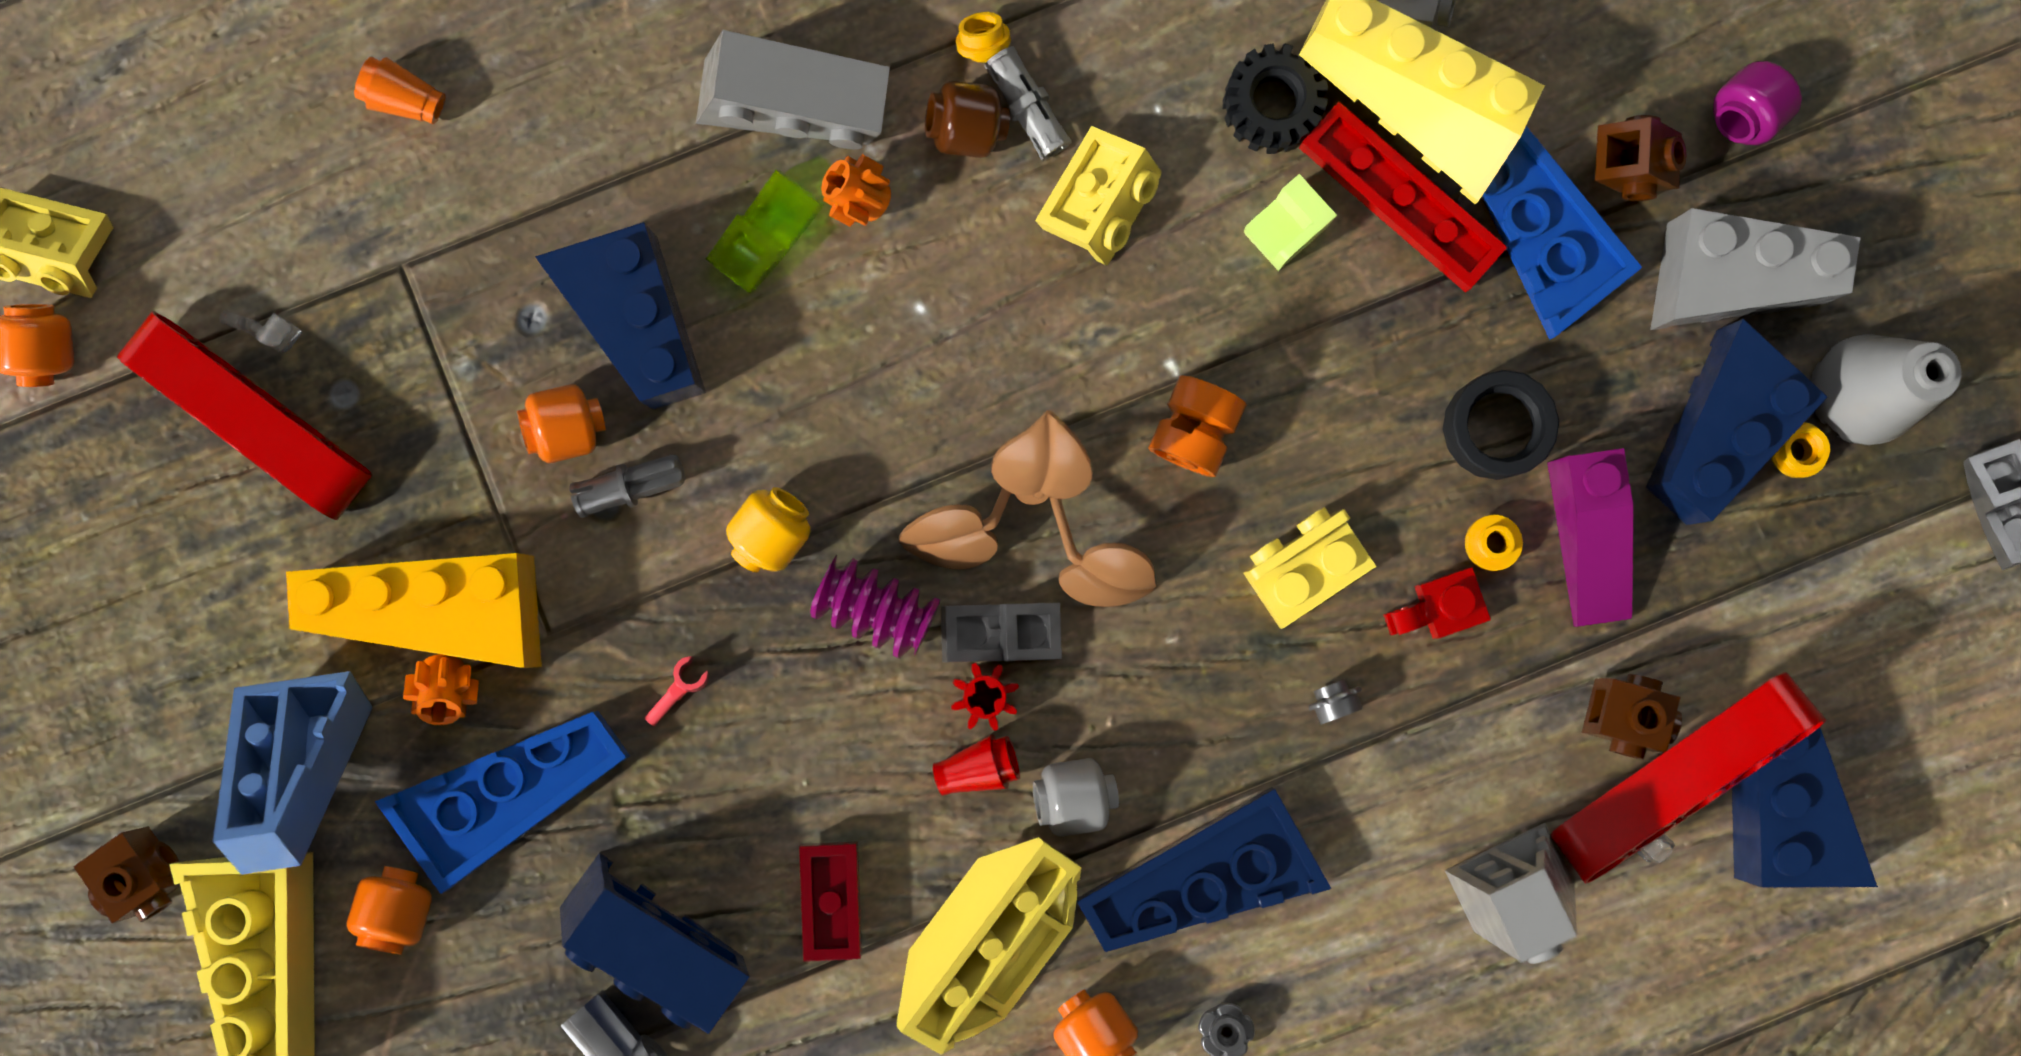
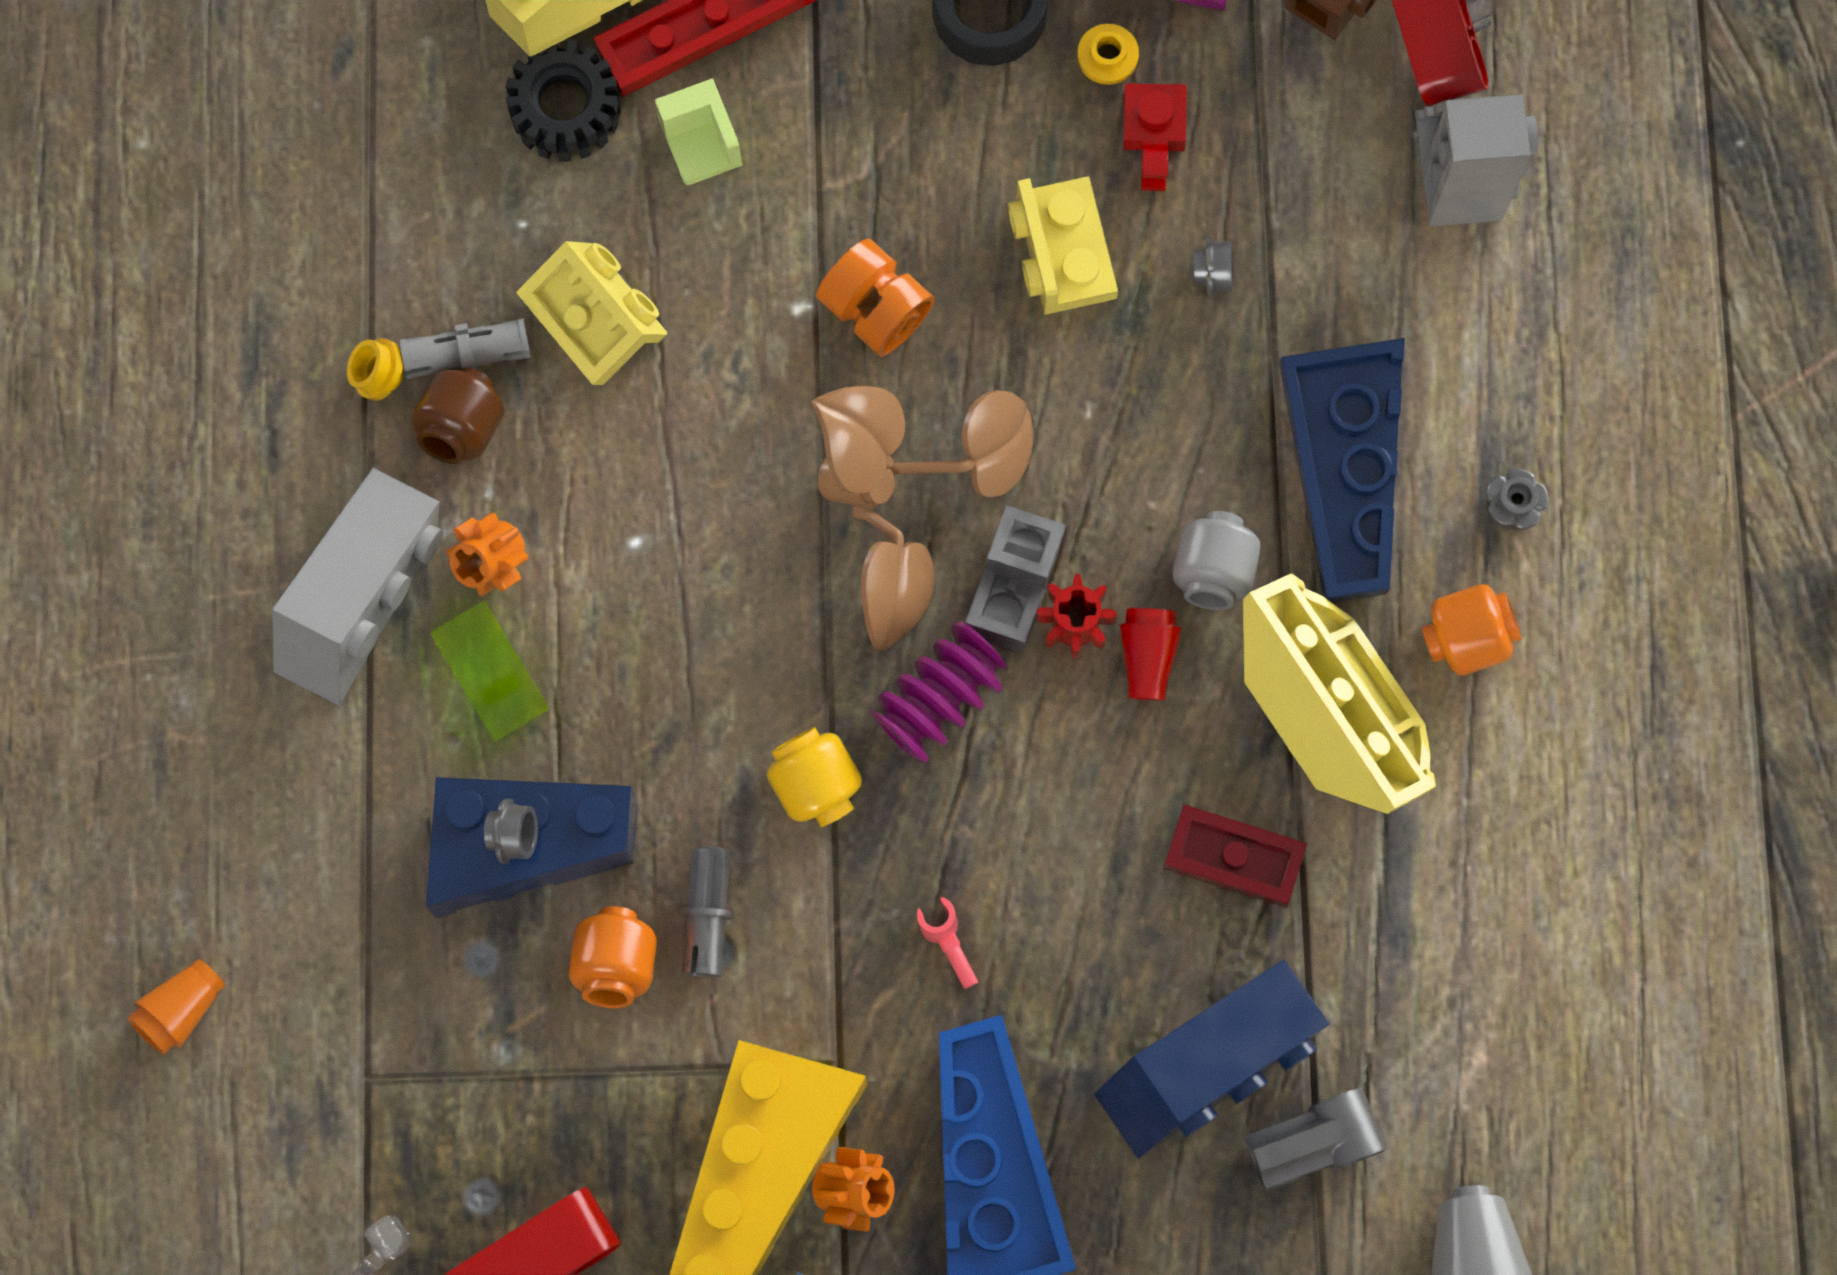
camera: 65 degrees left, 10 degrees down
(610, 301) = (511, 831): none -> flat silver plate

